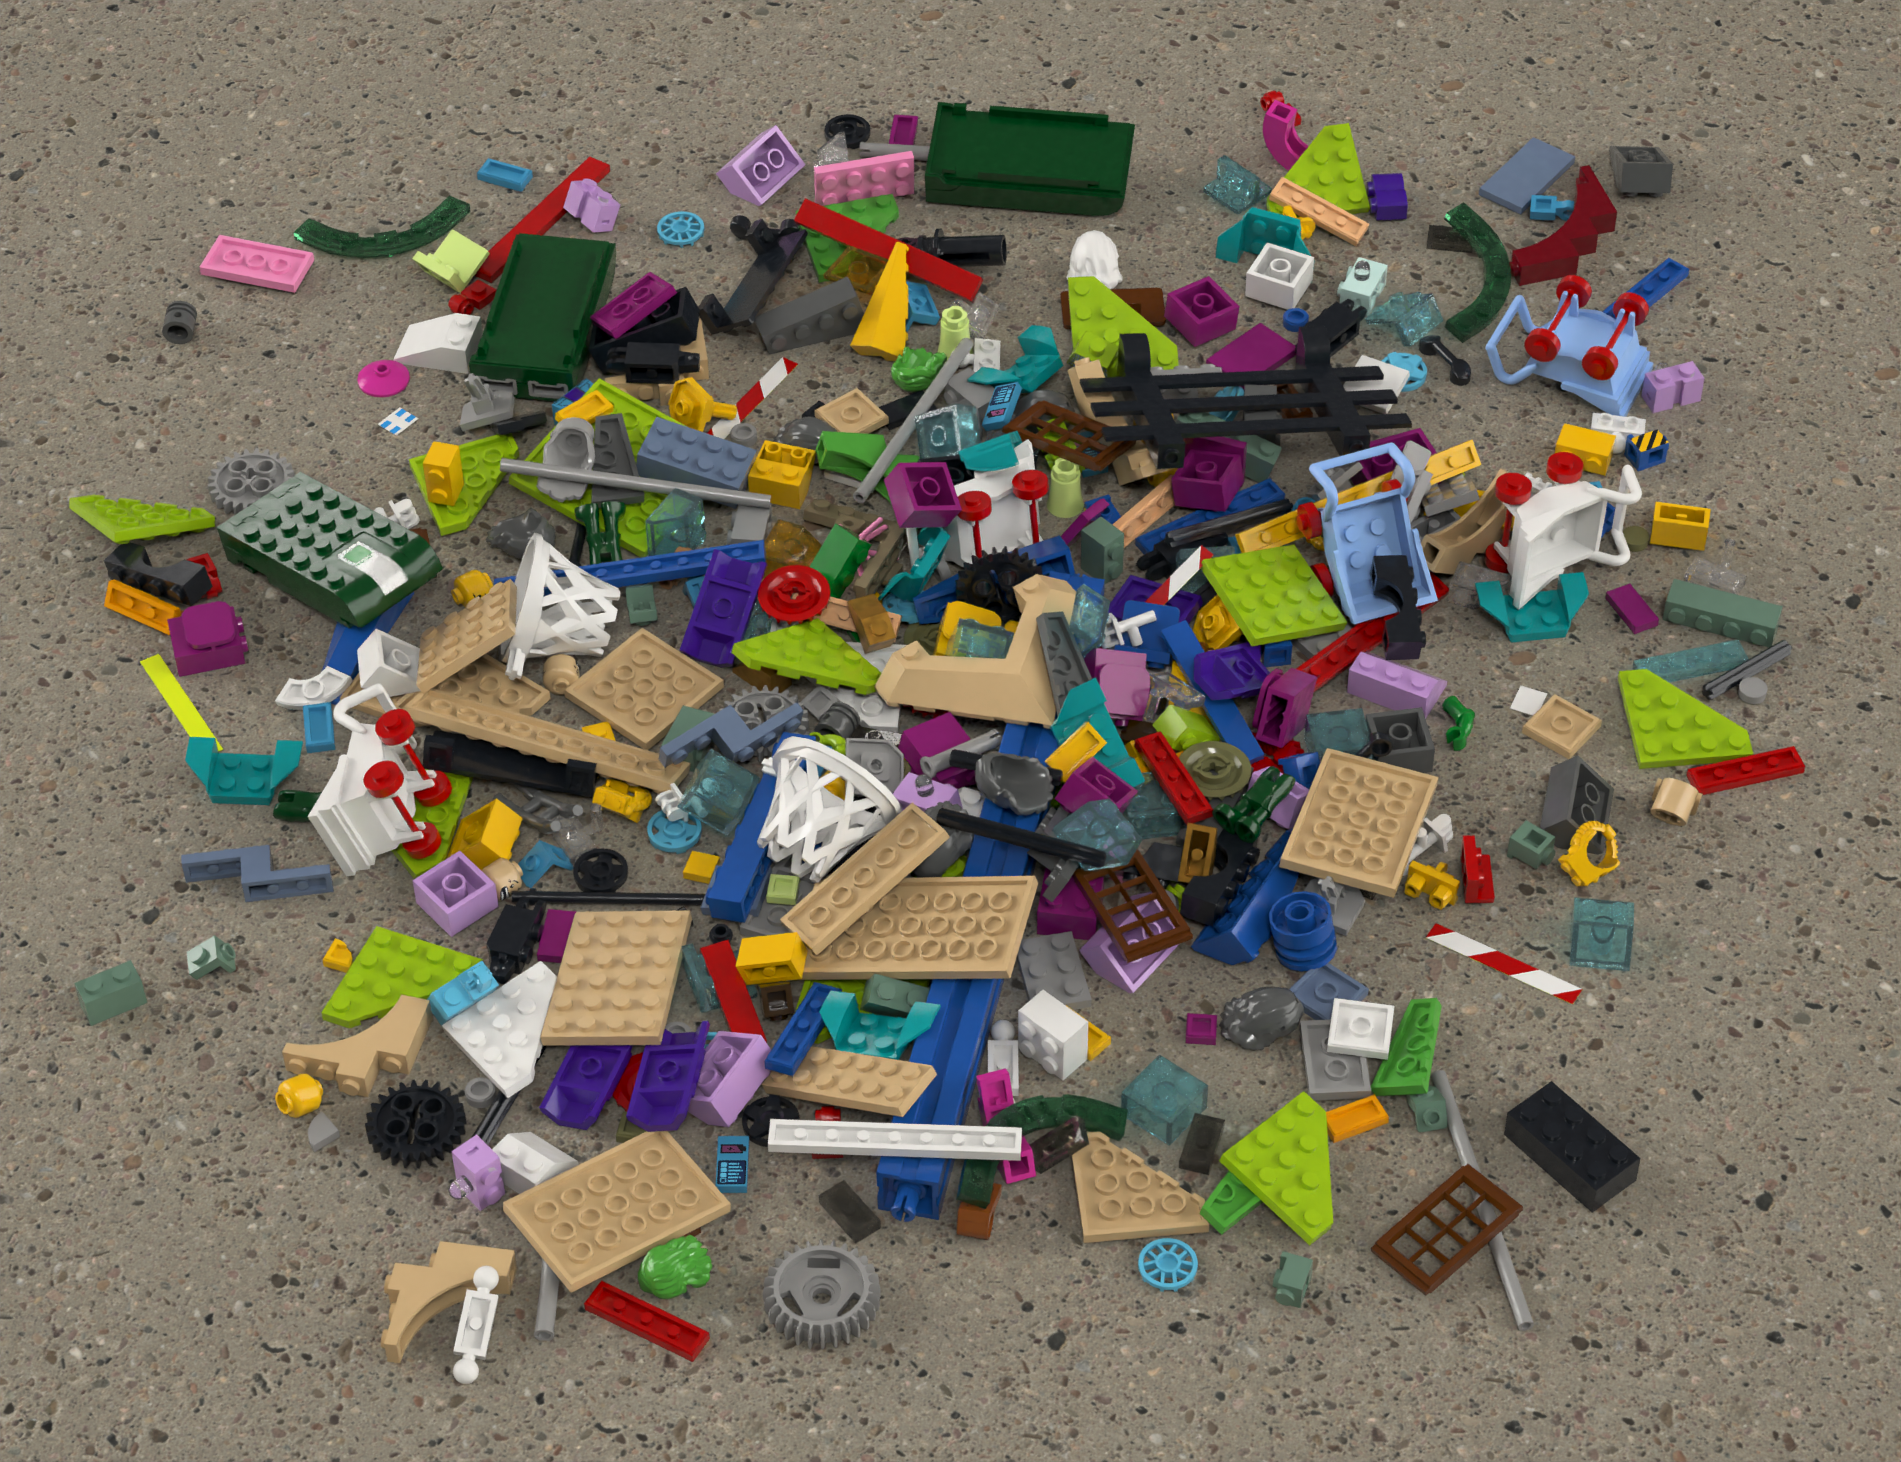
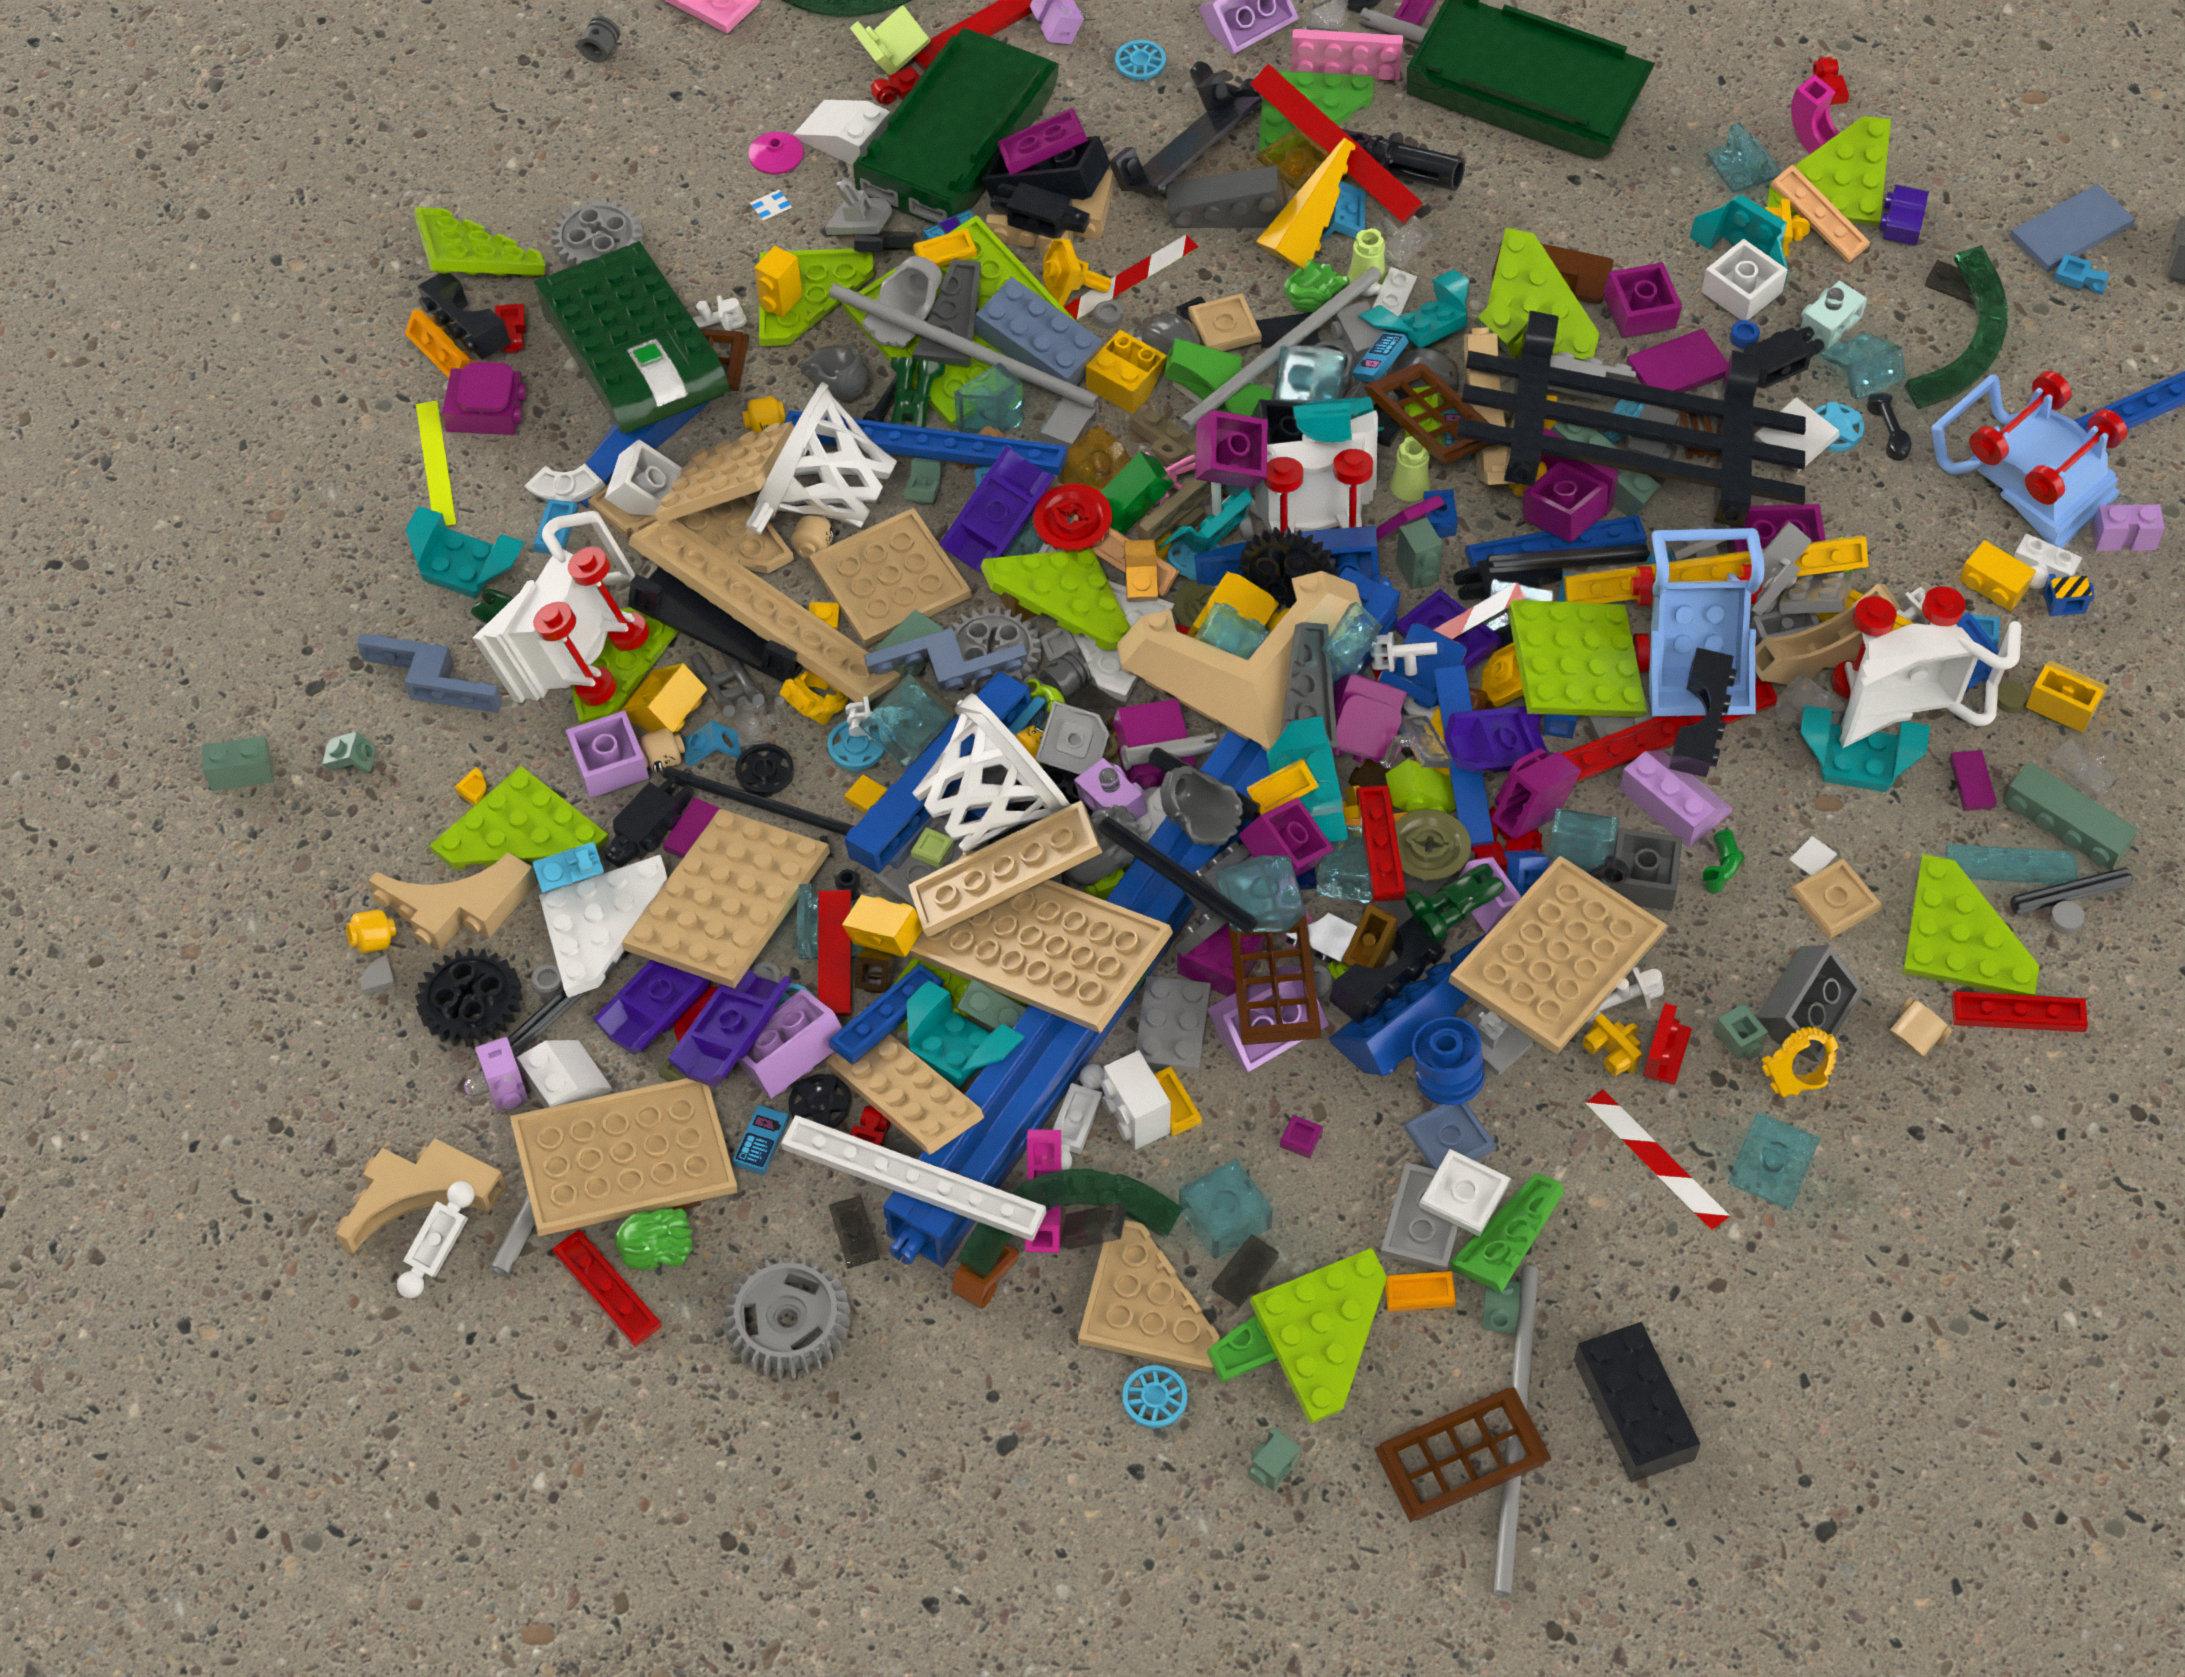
camera: 20 degrees right, 10 degrees up
(1095, 256) = (1553, 212): white piece -> none
(1146, 511) = (1481, 522): light nougat tile -> none
(1261, 1017) = (1366, 1144): dark grey piece -> none
(1560, 252) = (2065, 332): dark red arch -> none

